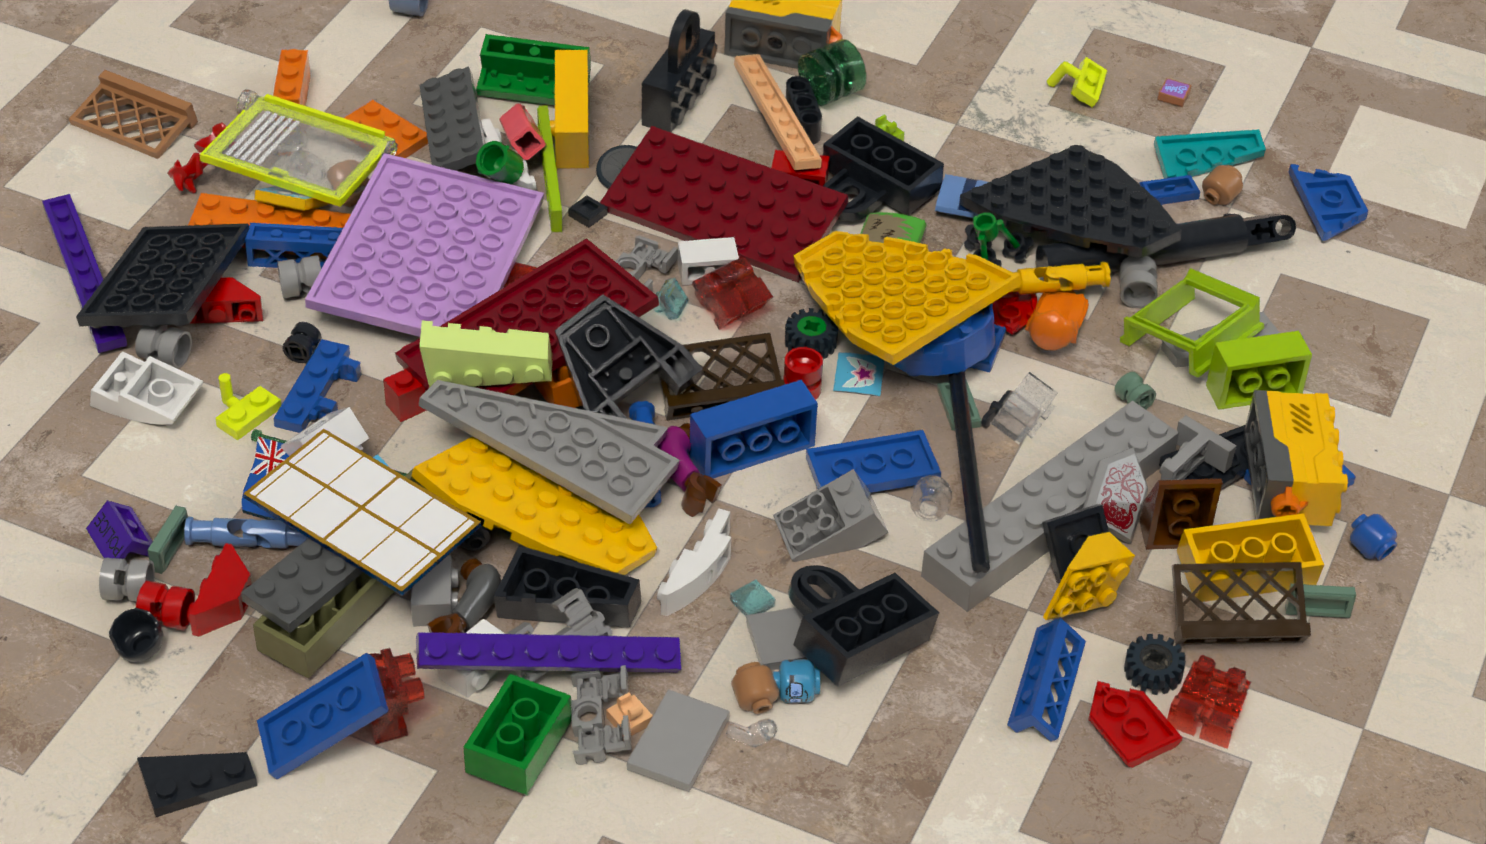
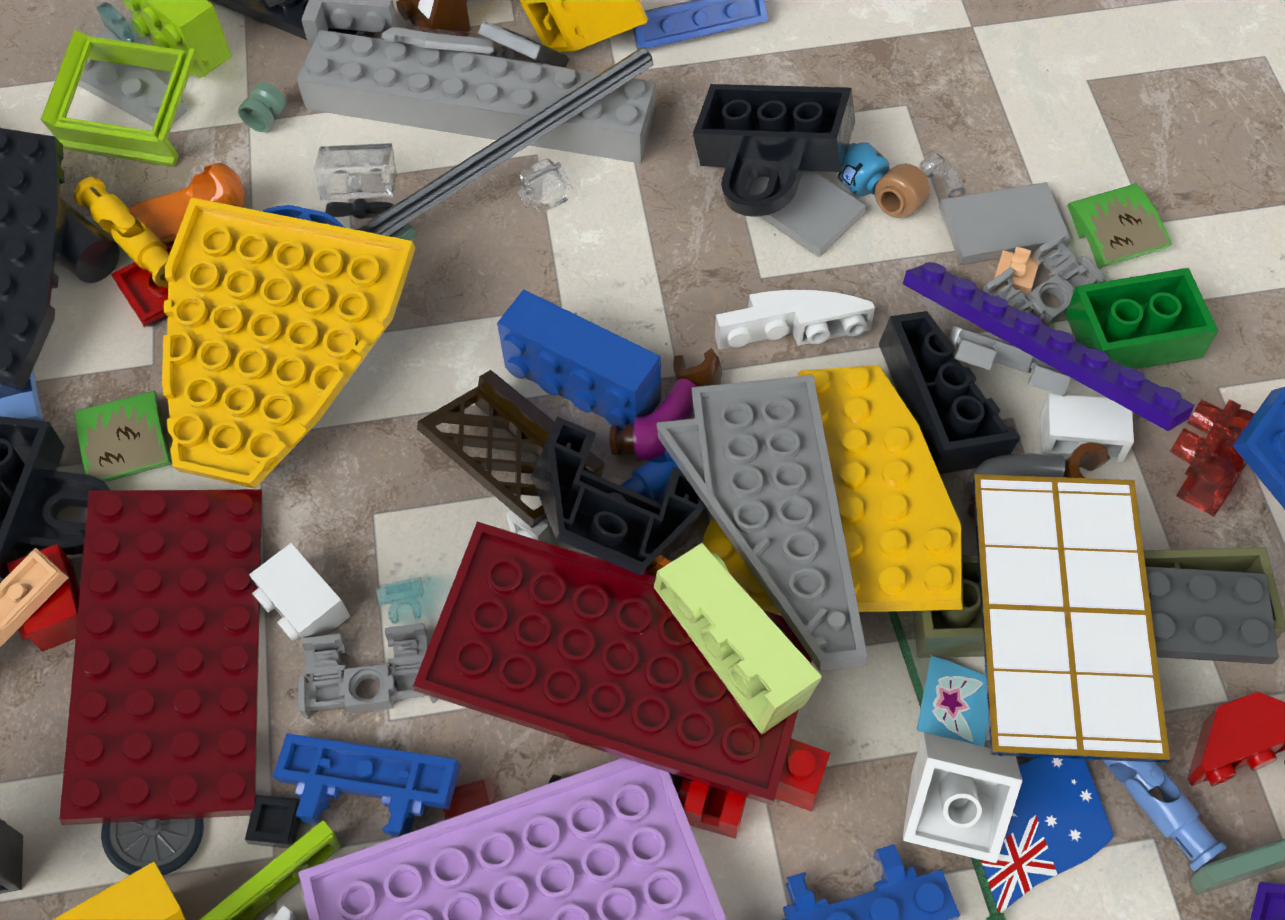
camera: 120 degrees left, 15 degrees up
(598, 231) = (397, 777): none -> blue hinge
(613, 802) = (1119, 225): none -> slope
(732, 292) = (351, 526): clear red hips -> none
(752, 599) = (789, 263): clear light blue tile -> none
(804, 365) = (445, 372): red wheel -> none
(811, 331) = (367, 431): black wheel -> none
(831, 520) = (640, 249): light grey slope -> none
(859, 373) = (392, 356): medium azure sticker -> none
(878, 461) = (530, 255): blue plate -> none
(985, 229) = (84, 307): plant -> none
(1138, 281) = (80, 164): light grey wheel -> none

